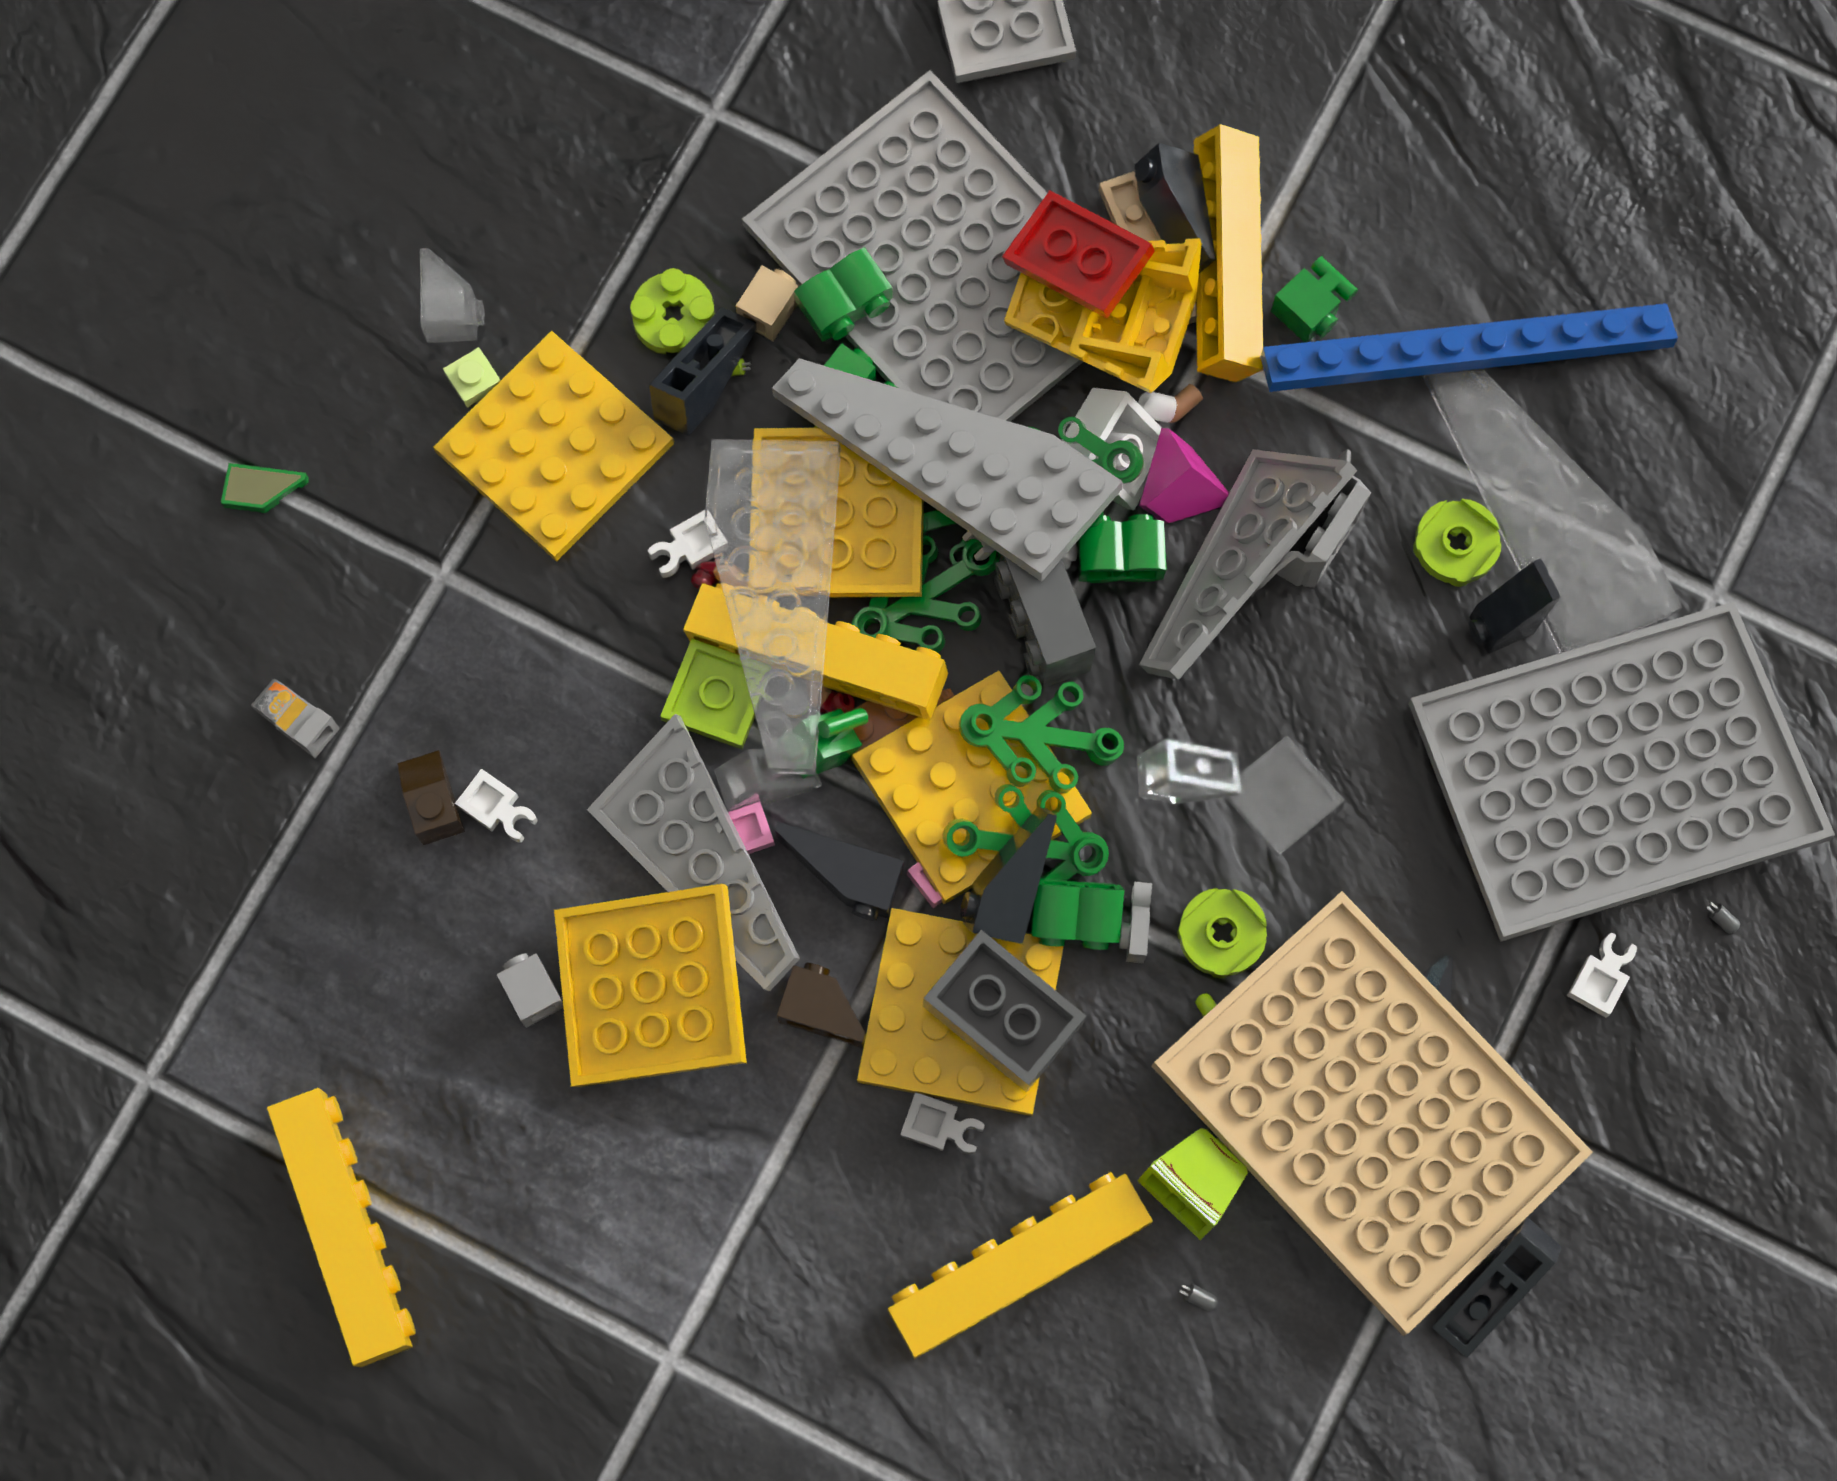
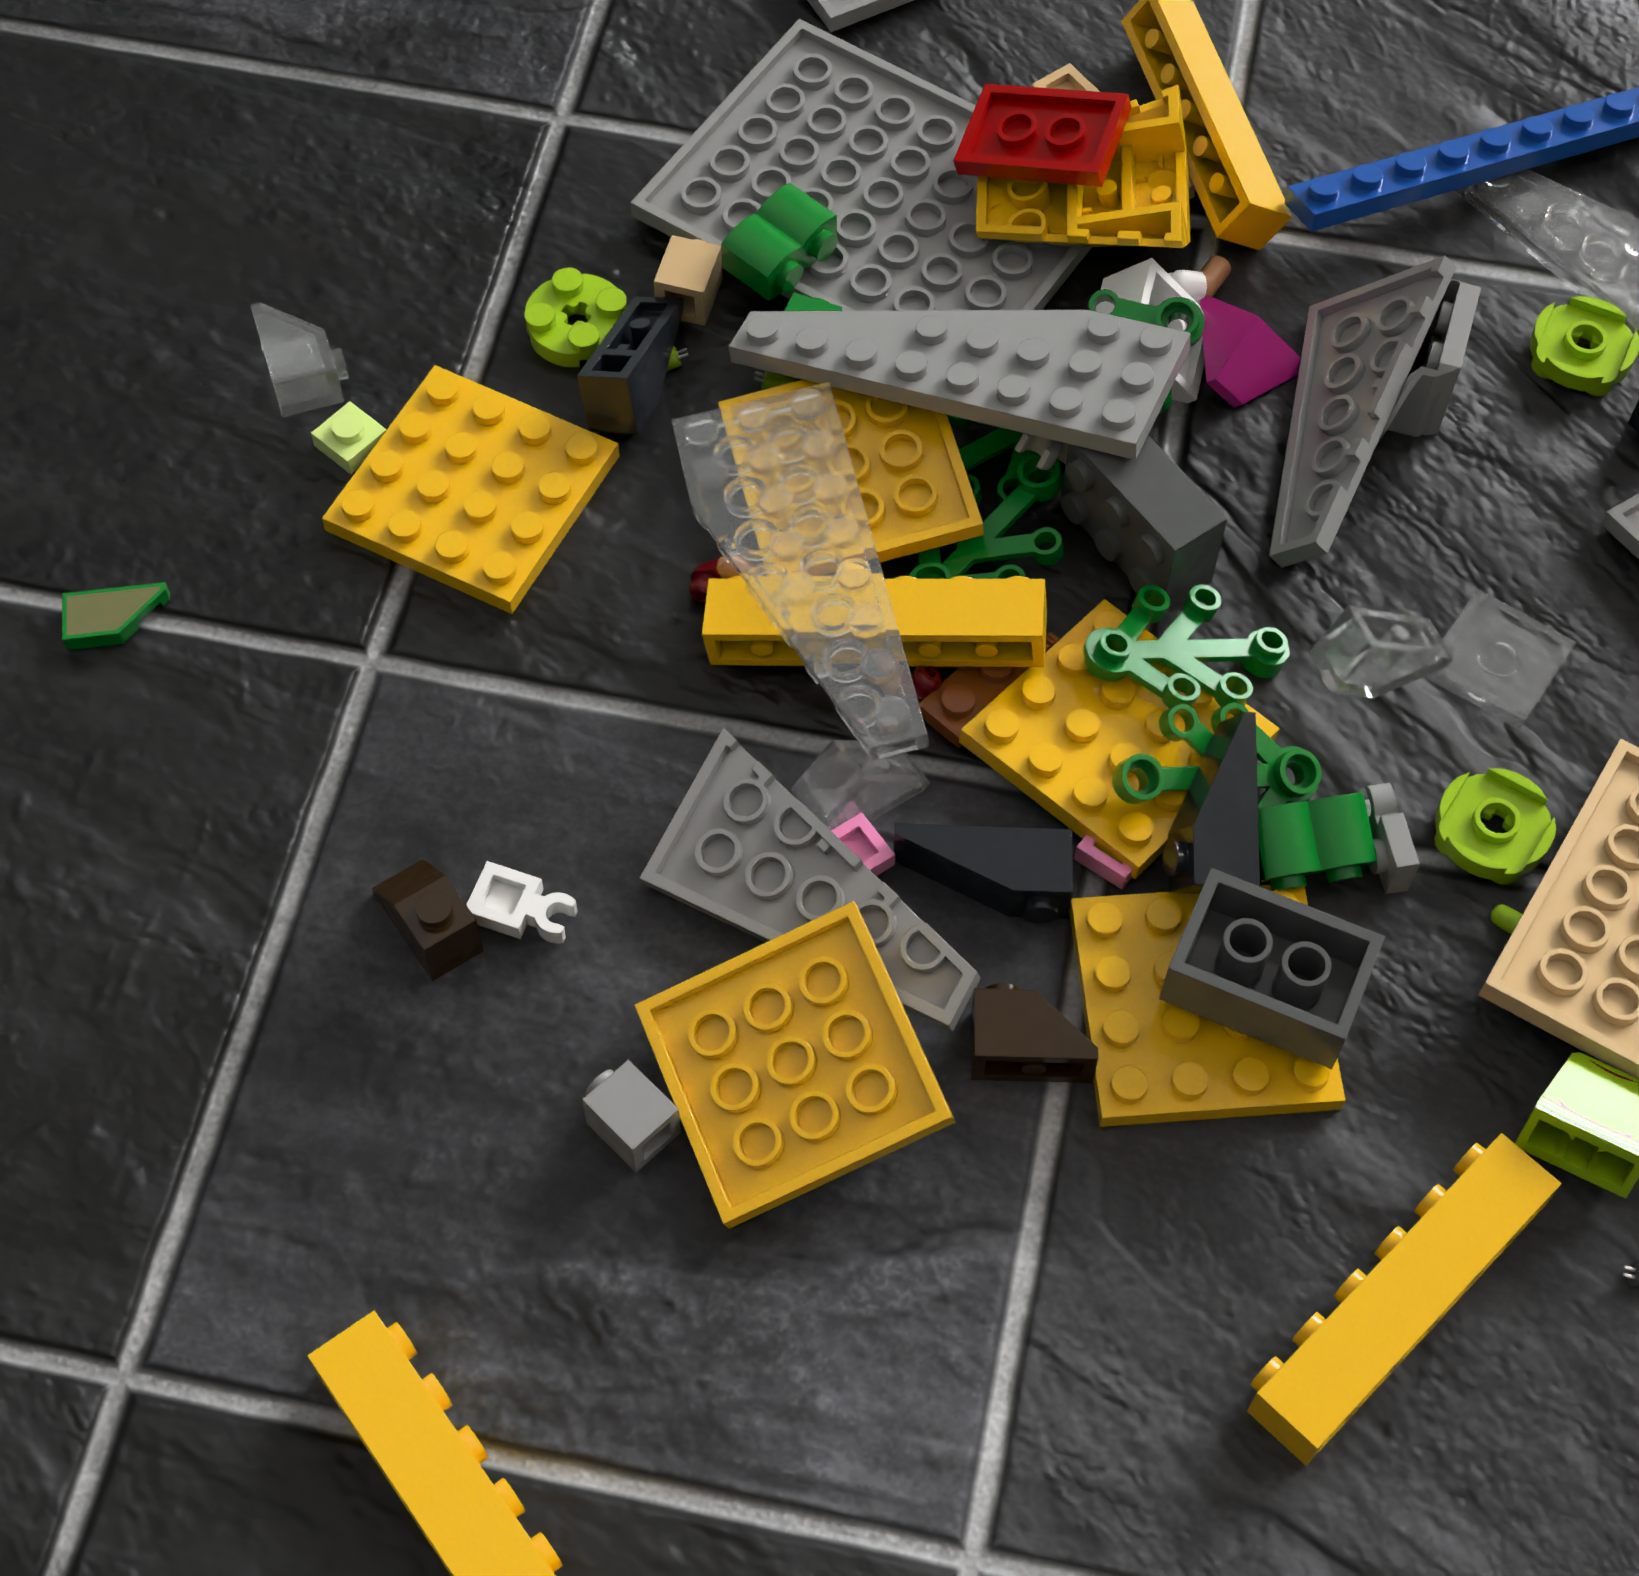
camera: 15 degrees left, 15 degrees down
(295, 717) = (222, 863): light grey leg -> none
(689, 544) = (673, 547): white plate -> none
(712, 695) = (764, 705): lime plate -> none
(837, 738) = (940, 714): green brick -> none
(933, 1123) = (1222, 1147): light grey plate -> none
(1123, 551) = (1210, 435): green brick -> none
(1175, 197) = (1118, 62): black slope -> none
(1309, 304) = (1314, 144): green brick -> none

